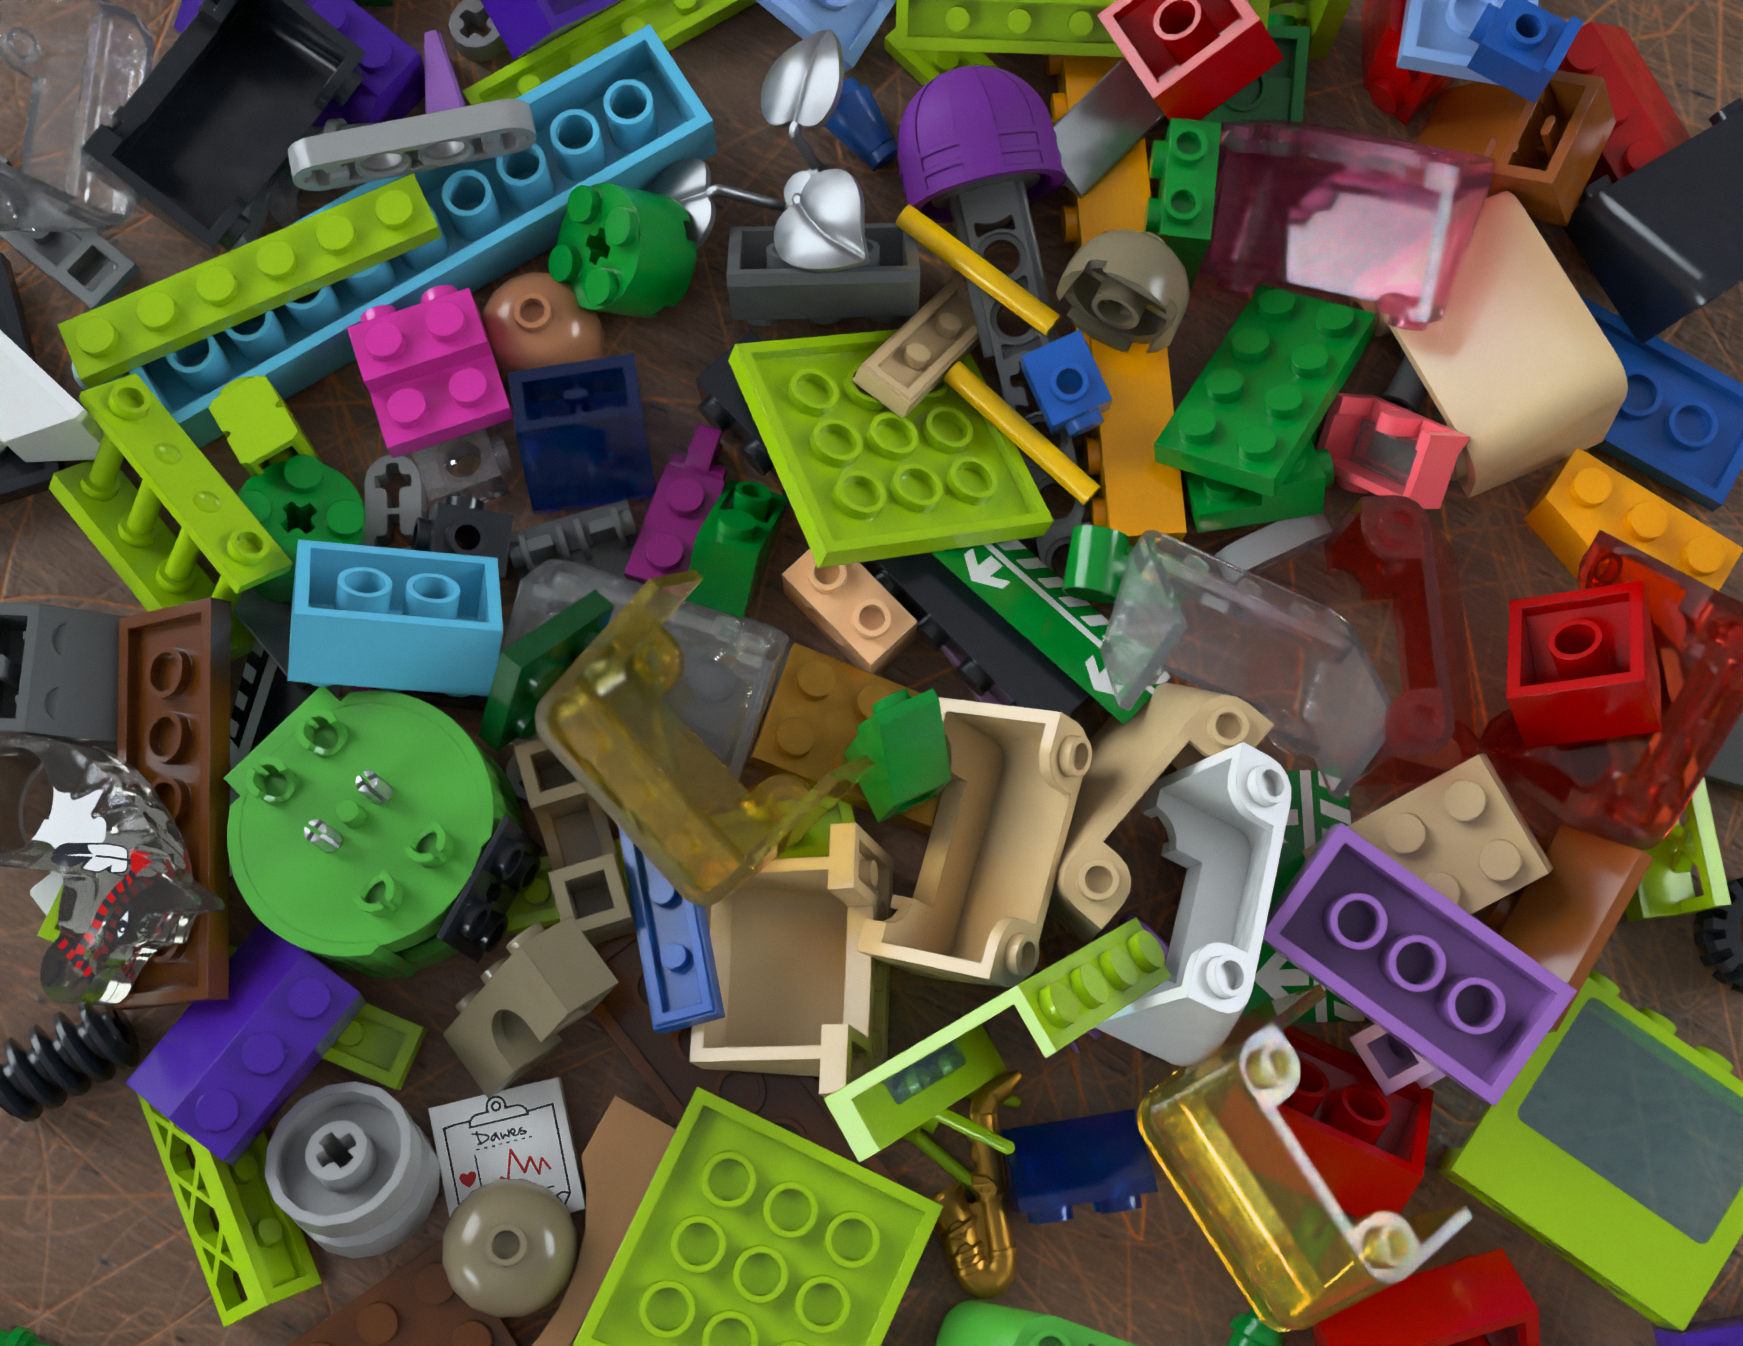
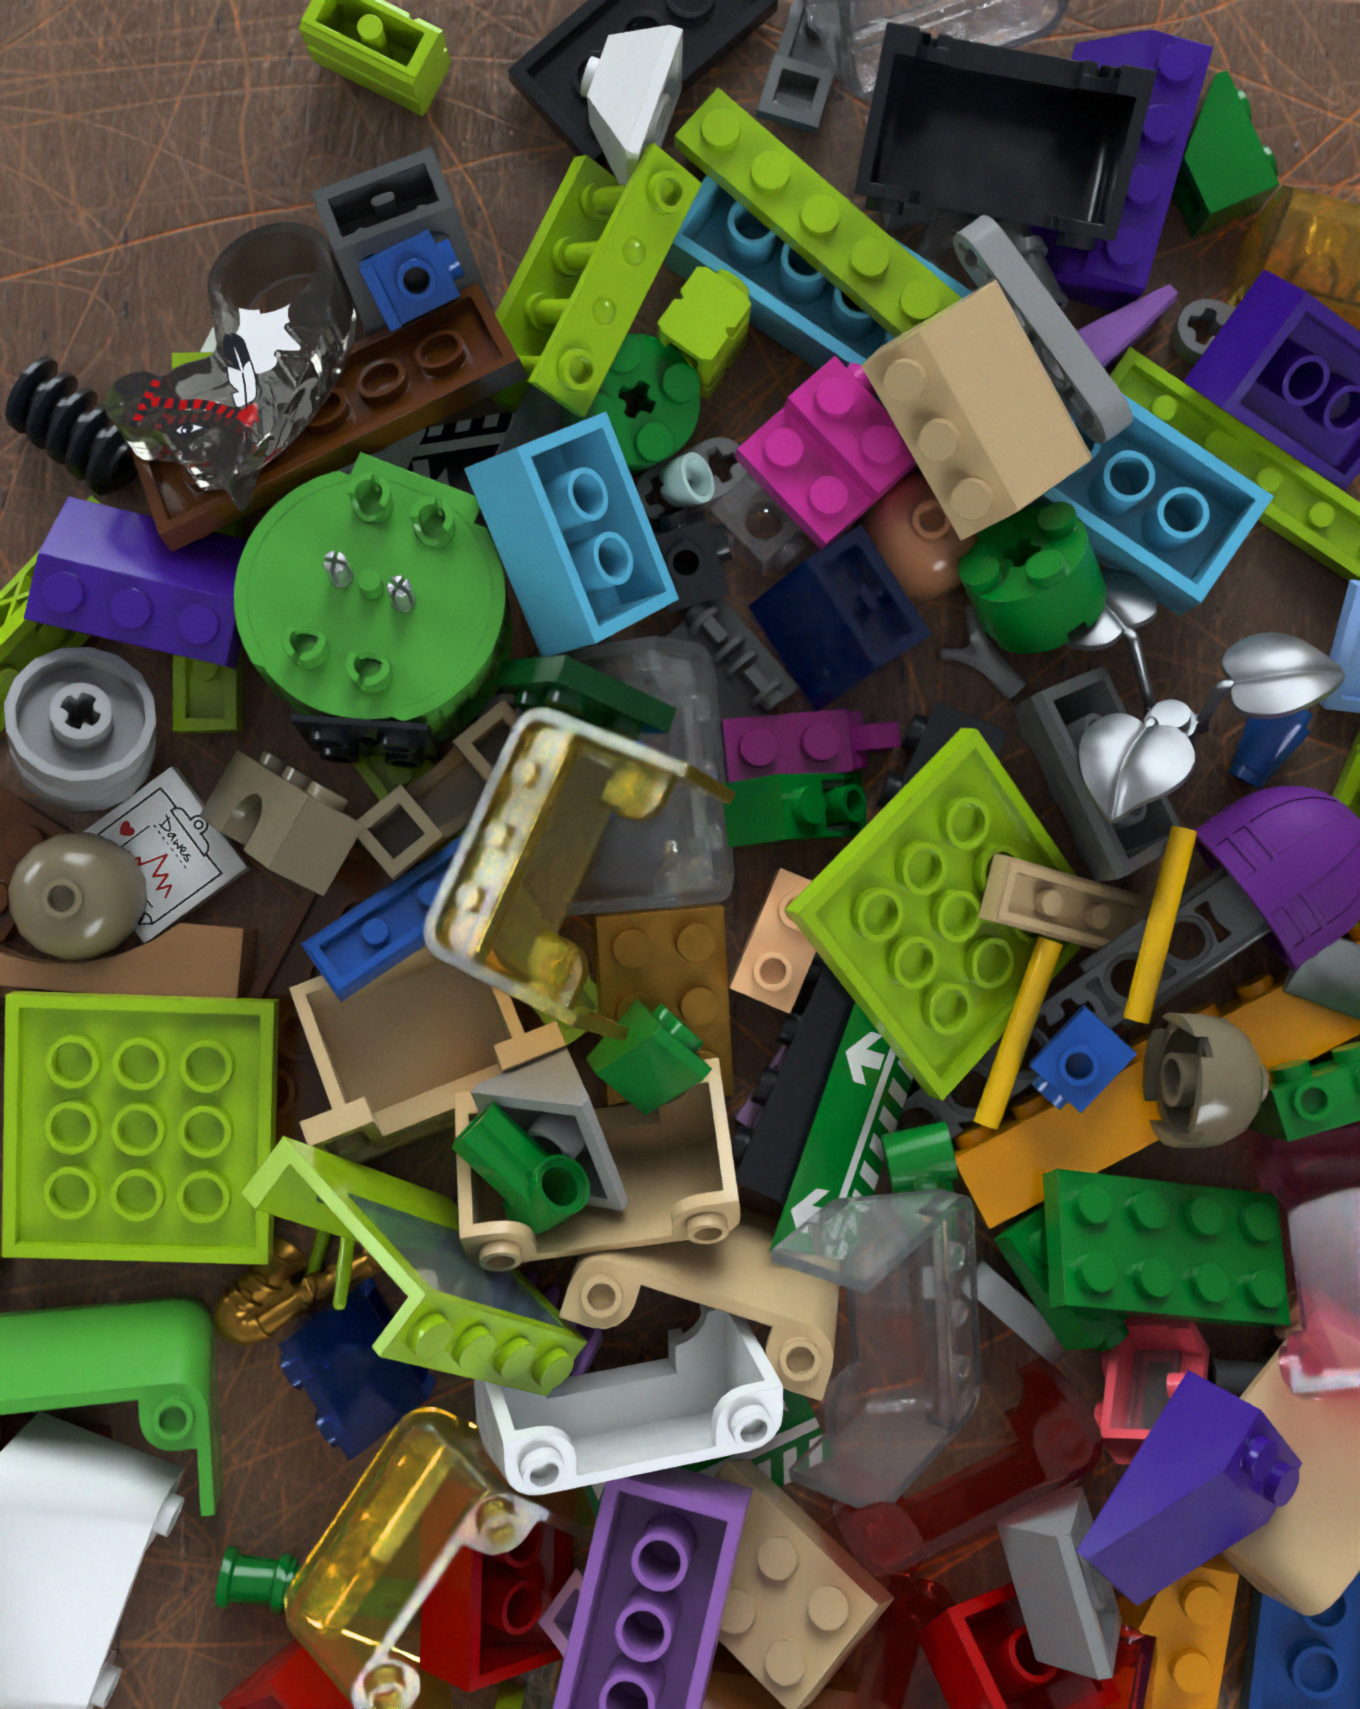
camera: 65 degrees right, 10 degrees up
(70, 687) = (387, 269): none -> blue brick
(393, 511) = (687, 481): none -> light aqua hinge
(455, 223) = (977, 410): none -> tan slope
(676, 329) = (985, 658): none -> light grey bar
(933, 871) = (557, 1113): none -> light grey slope
(964, 903) = (522, 1170): none -> green piece
(1476, 436) = (1191, 1491): none -> dark purple slope
(1521, 590) = (1061, 1596): none -> light grey slope

